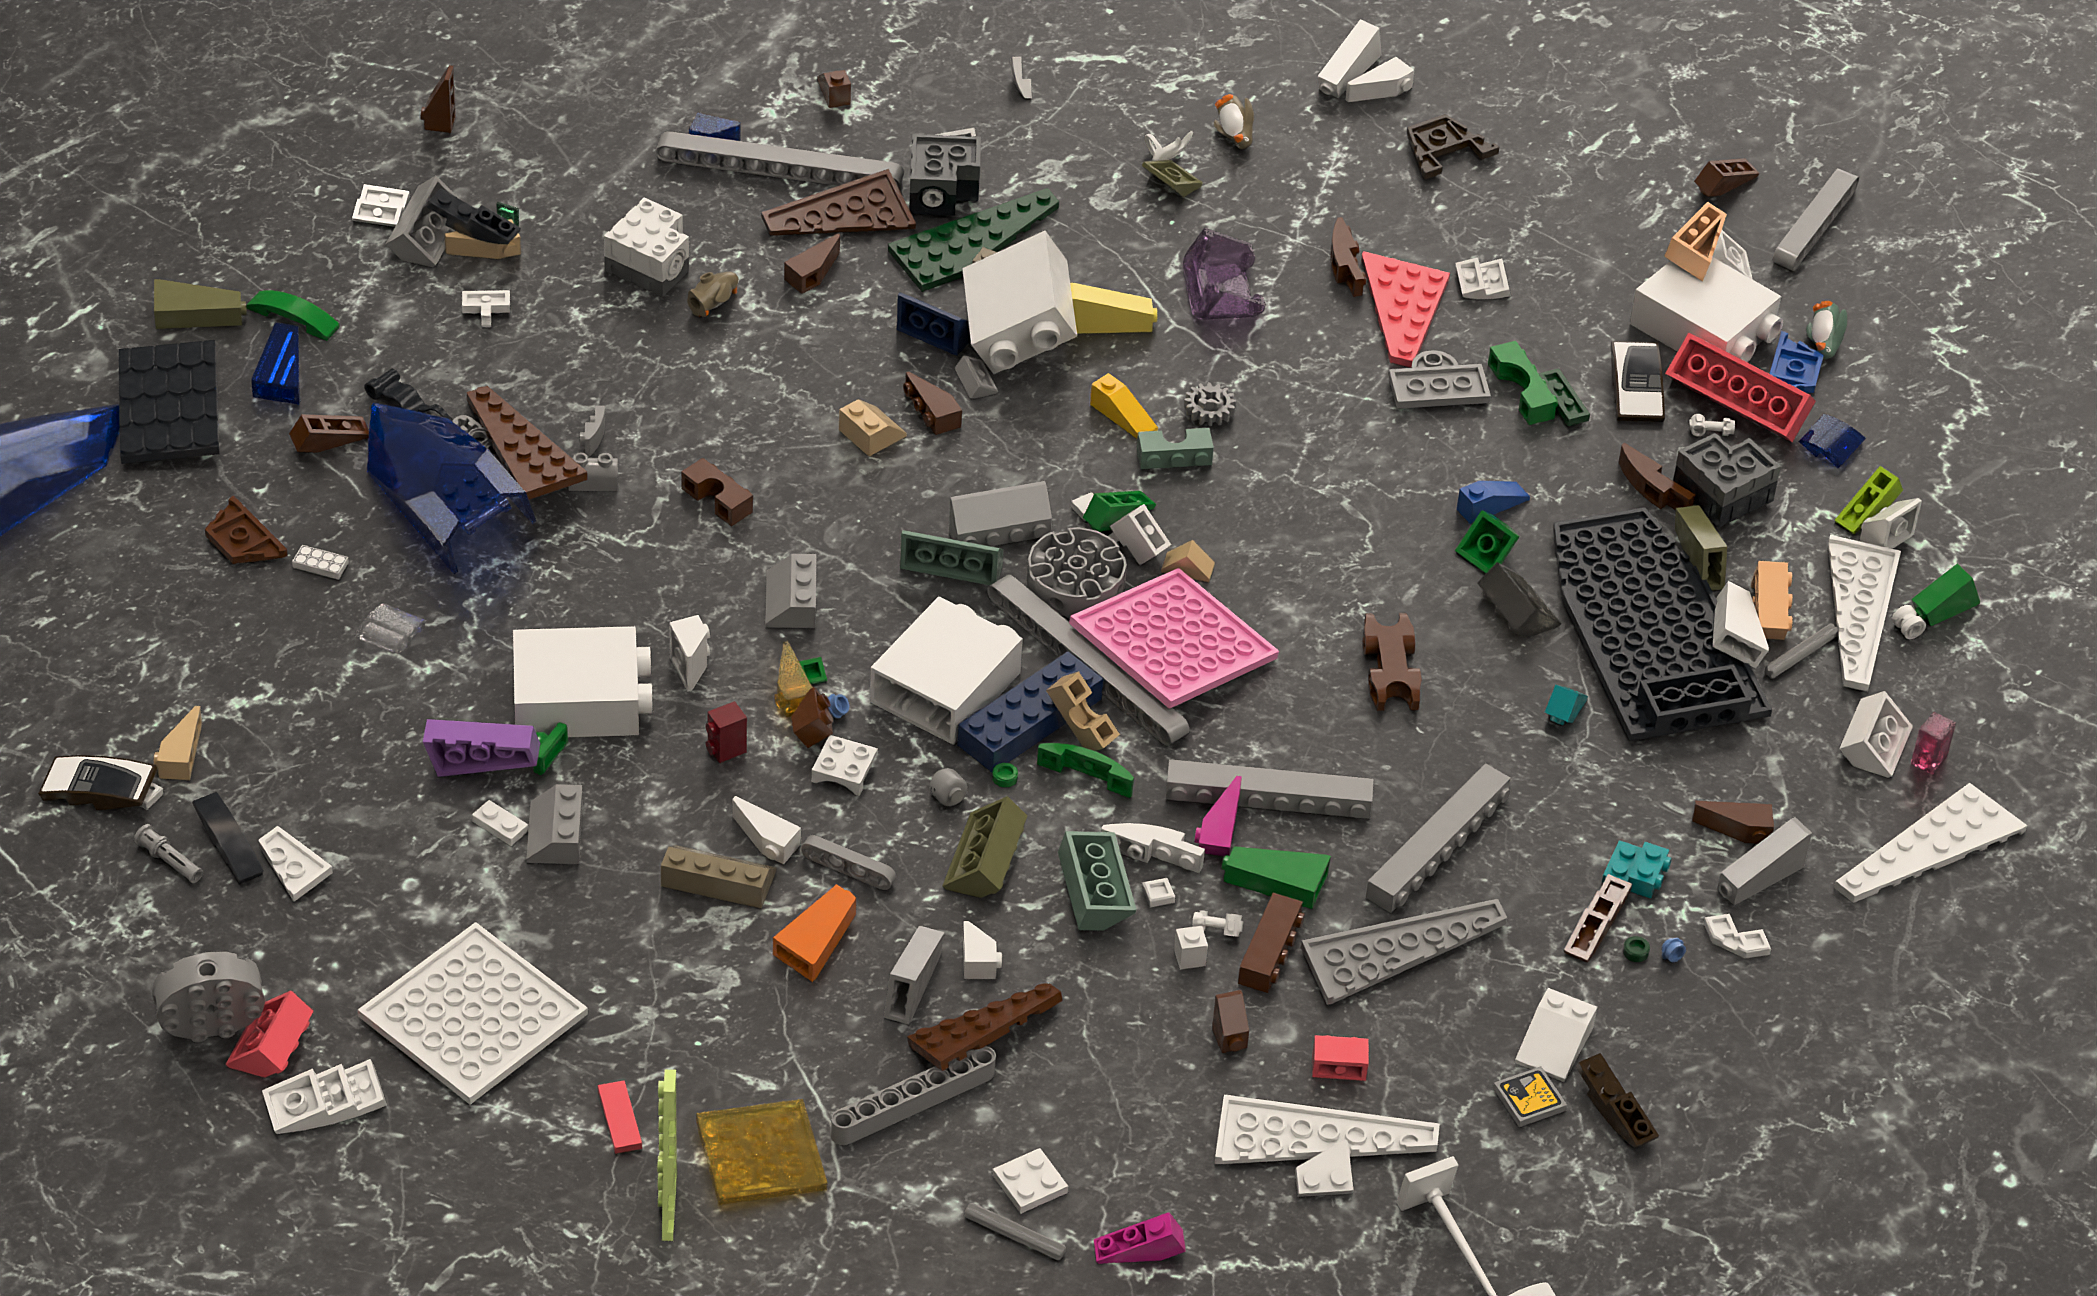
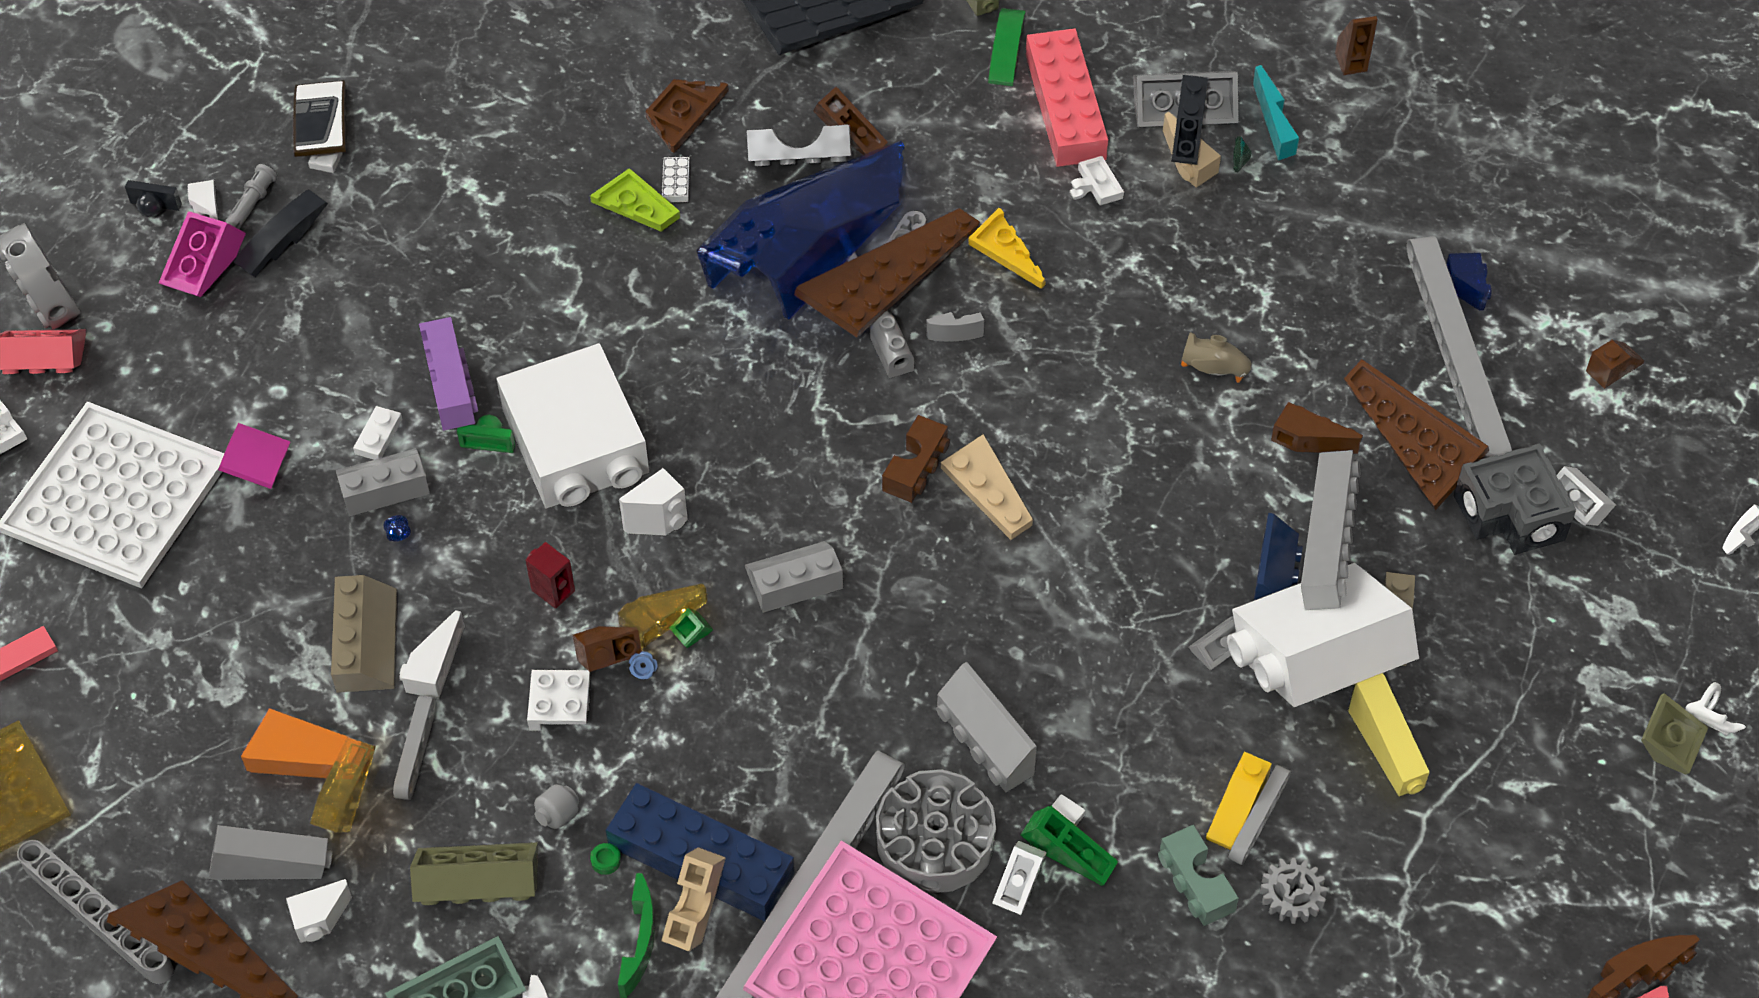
camera: 75 degrees right, 10 degrees up
(126, 921) = (152, 197): none -> black tile
(146, 886) = (203, 198): none -> white slope
(179, 748) = (385, 160): tan slope -> none
(225, 896) = (200, 254): none -> dark pink slope
(279, 366) = (926, 57): clear blue slope -> none
(293, 862) = (268, 294): white wing -> none
(333, 591) = (636, 200): none -> lime wing
(351, 445) = (766, 146): none -> arch
(380, 205) = (1195, 54): white slope -> none
(383, 292) = (1066, 97): none -> coral brick
(390, 628) = (605, 259): clear slope -> none
(404, 394) = (929, 164): black flag -> none
(488, 902) = (254, 455): none -> dark pink slope
(489, 182) = (1271, 103): none -> teal slope
(525, 378) = (1001, 244): none -> yellow wing
(616, 827) = (397, 528): none -> clear blue bush
(648, 248) = (1244, 278): white piece -> none
(764, 461) = (988, 486): none -> tan wing
(868, 427) = (1085, 564): tan slope -> none
(877, 903) = (343, 787): none -> clear yellow slope
(928, 268) = (1330, 530): none -> light grey brick
(935, 405) = (1142, 618): reddish brown slope -> none
(943, 251) = (1407, 542): wing -> none
(945, 668) = (725, 747): white brick -> none
(950, 558) = (910, 699): sand green slope -> none
(1159, 414) = (1259, 815): none -> light grey beam
(1190, 560) = (1016, 949): tan slope -> none
(1218, 278) = (1518, 841): clear purple windscreen -> none

